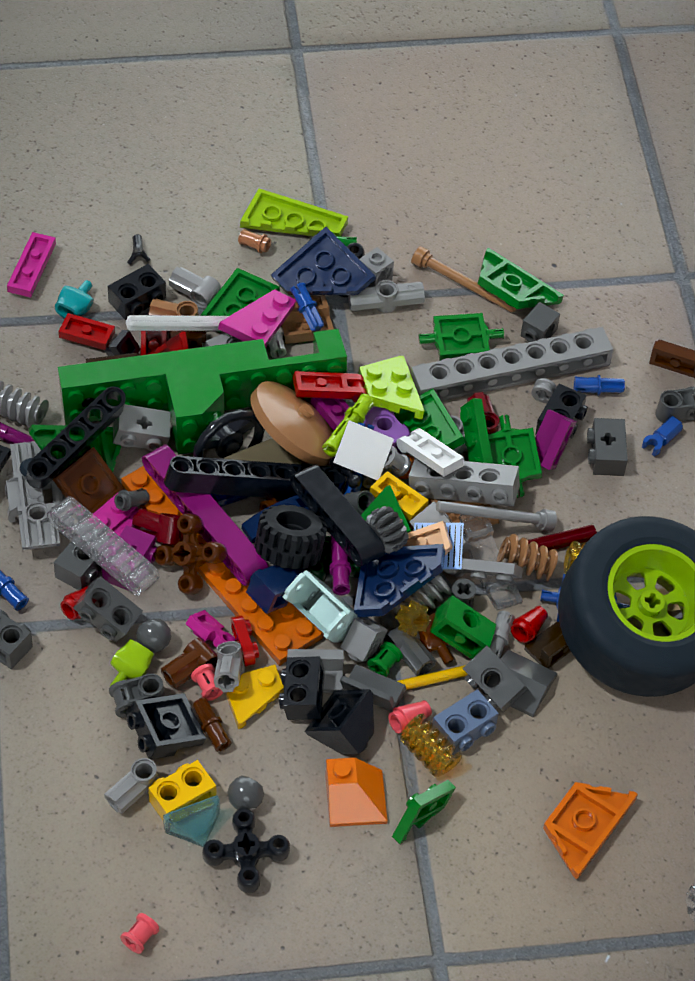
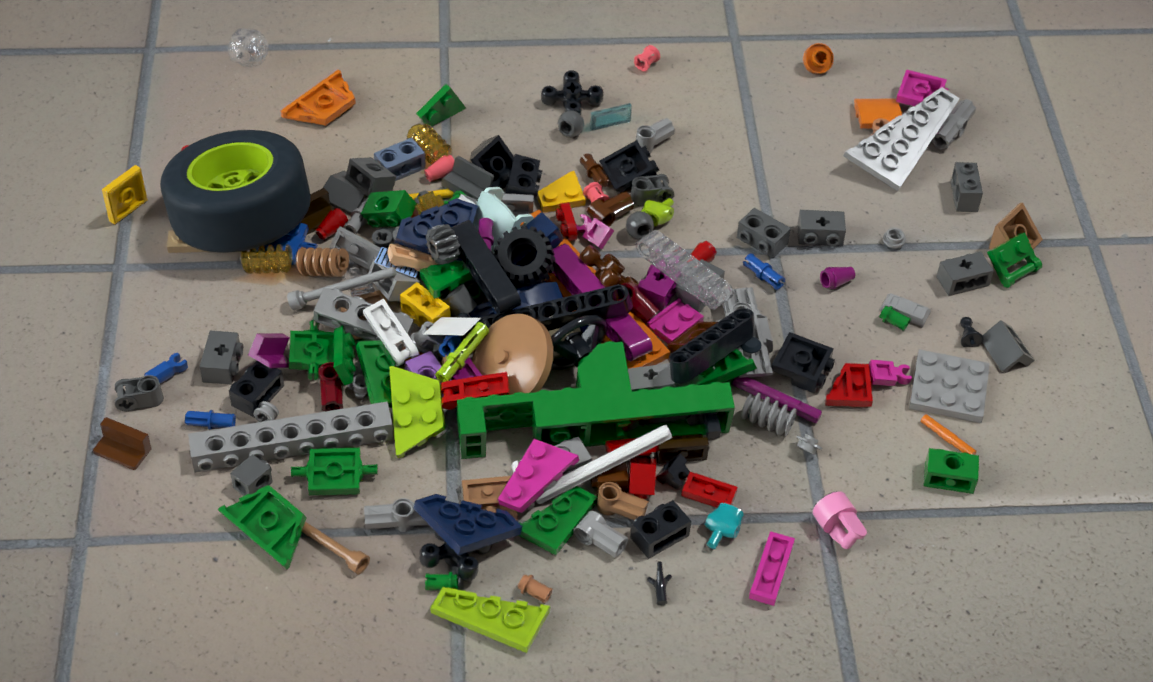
camera: 175 degrees left, 5 degrees down
(110, 603) = (685, 233): dark grey brick -> none
(127, 499) = (661, 322): dark grey pin -> none
(176, 786) = (616, 128): yellow brick -> none
(229, 666) = (580, 191): light grey piece -> none
(307, 307) = (488, 489): blue axle -> none
(354, 793) = (487, 125): orange slope -> none
(379, 265) = (408, 540): light grey brick -> none
(565, 538) = (282, 289): dark red axle -> none

